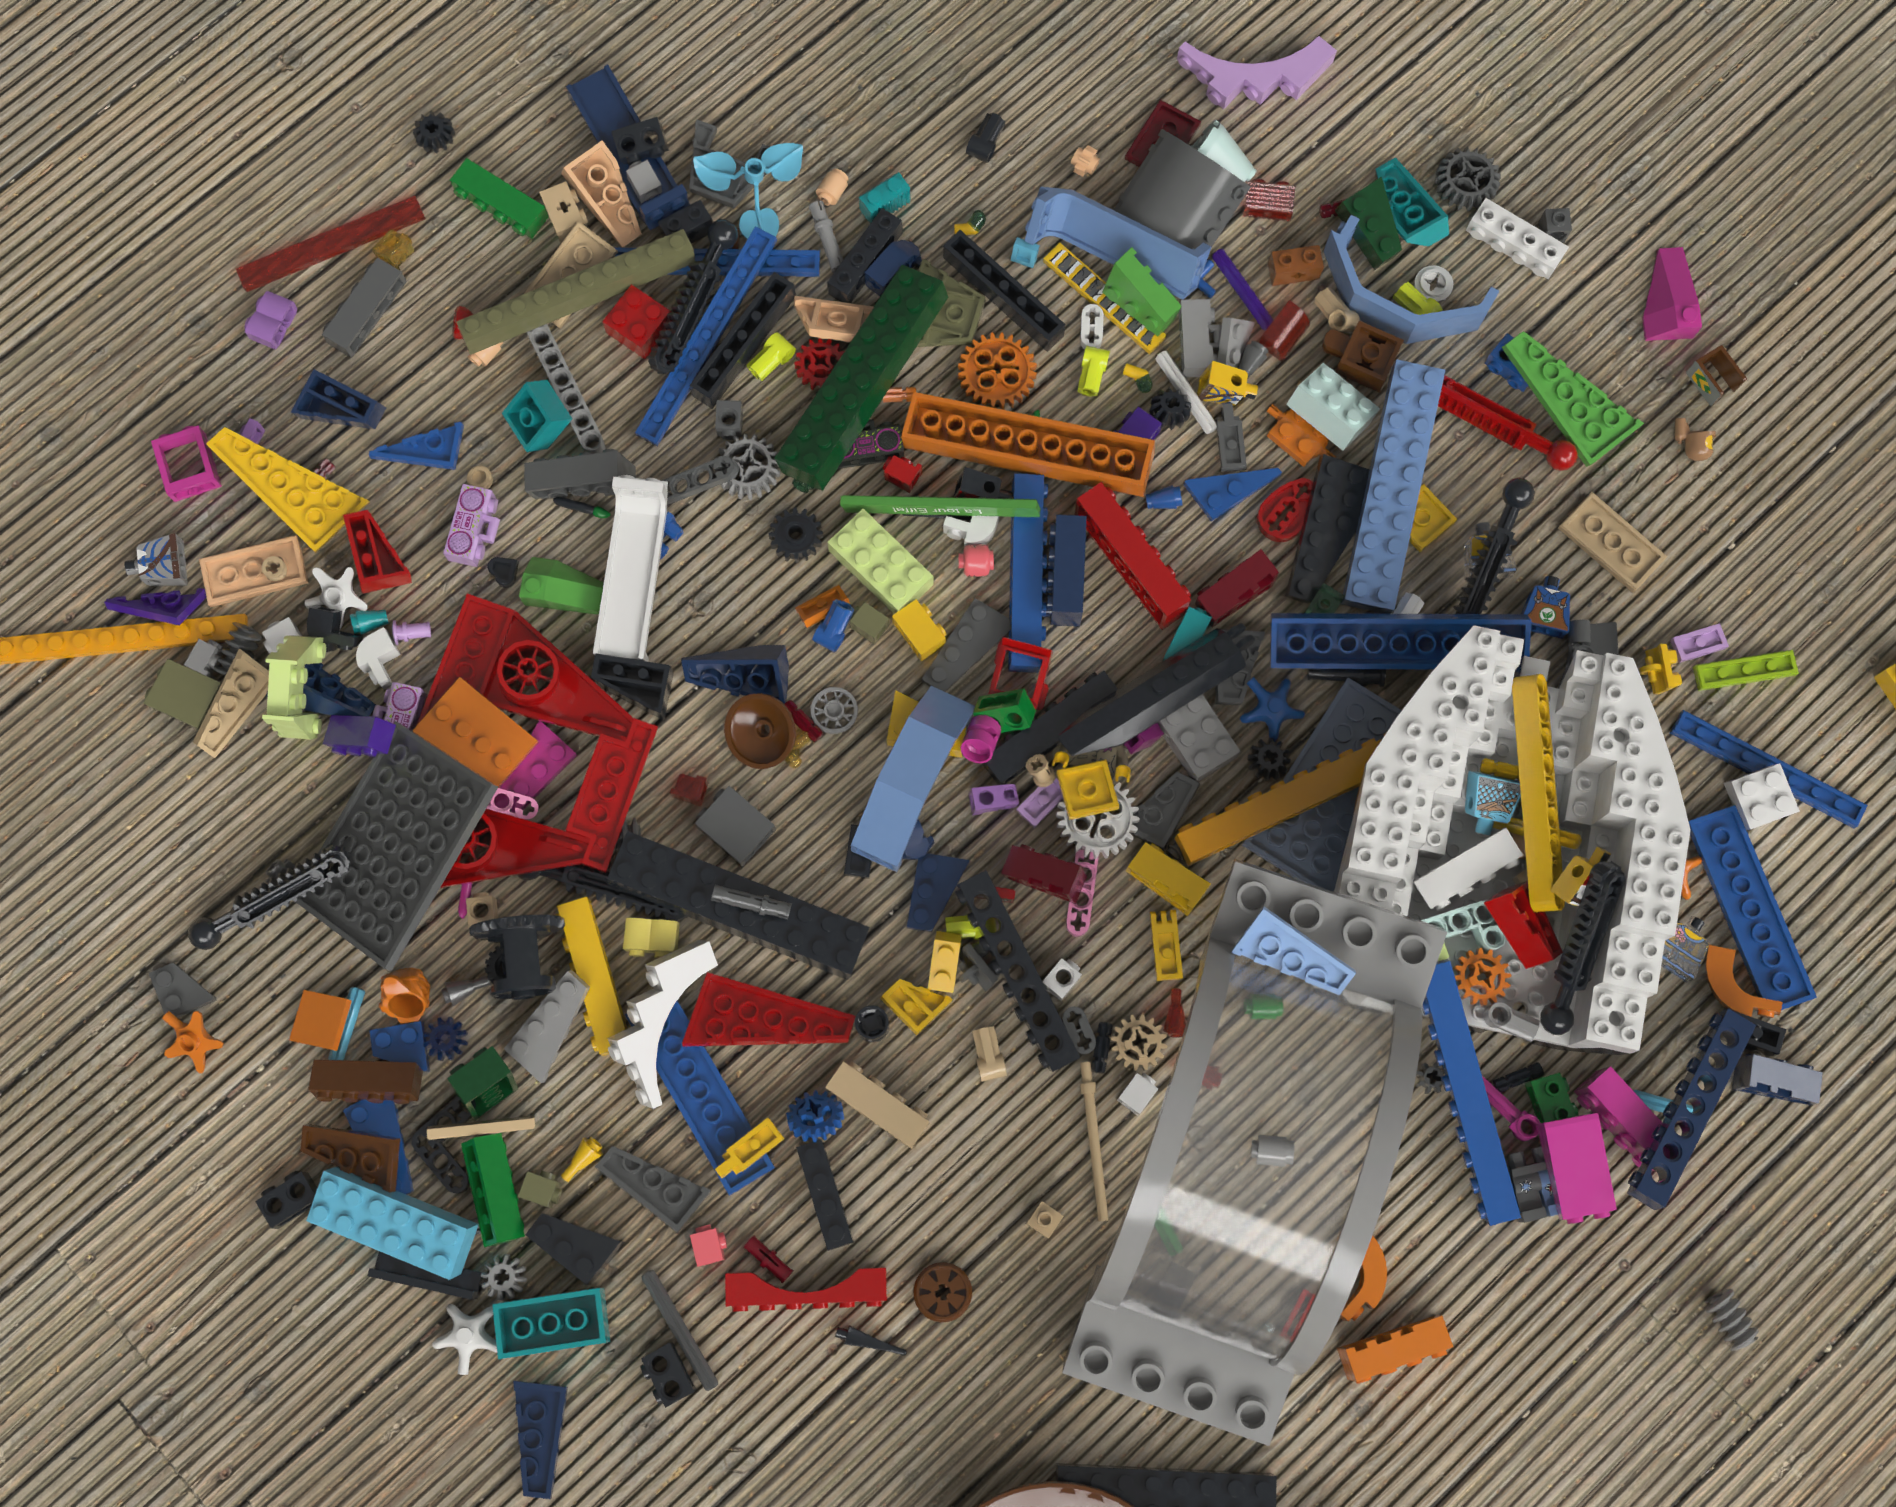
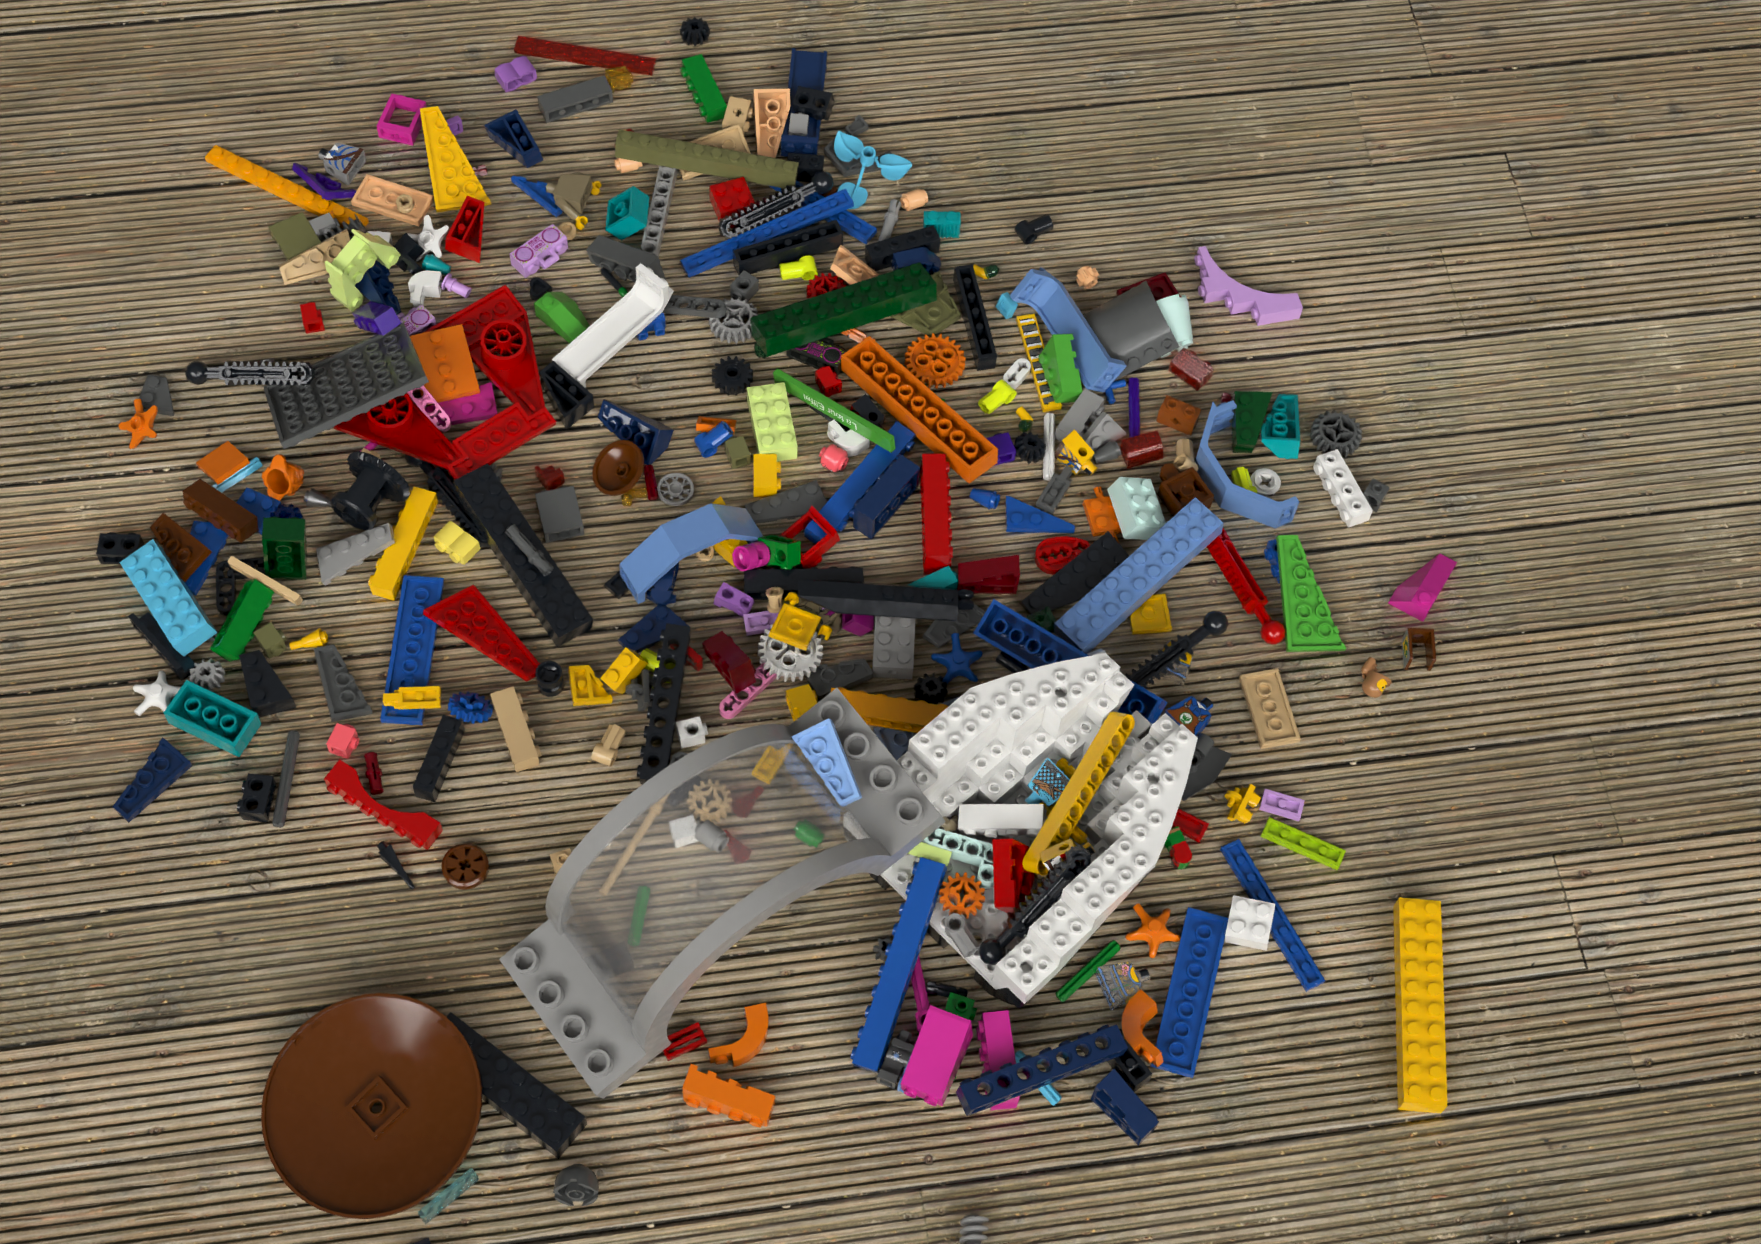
camera: 30 degrees right, 15 degrees down
(279, 778) = (312, 318): none -> red brick
(457, 432) = (572, 195): none -> dark tan torso
(649, 1011) = (395, 591): white arch -> none
(1417, 909) = (950, 824): none -> dark tan arm

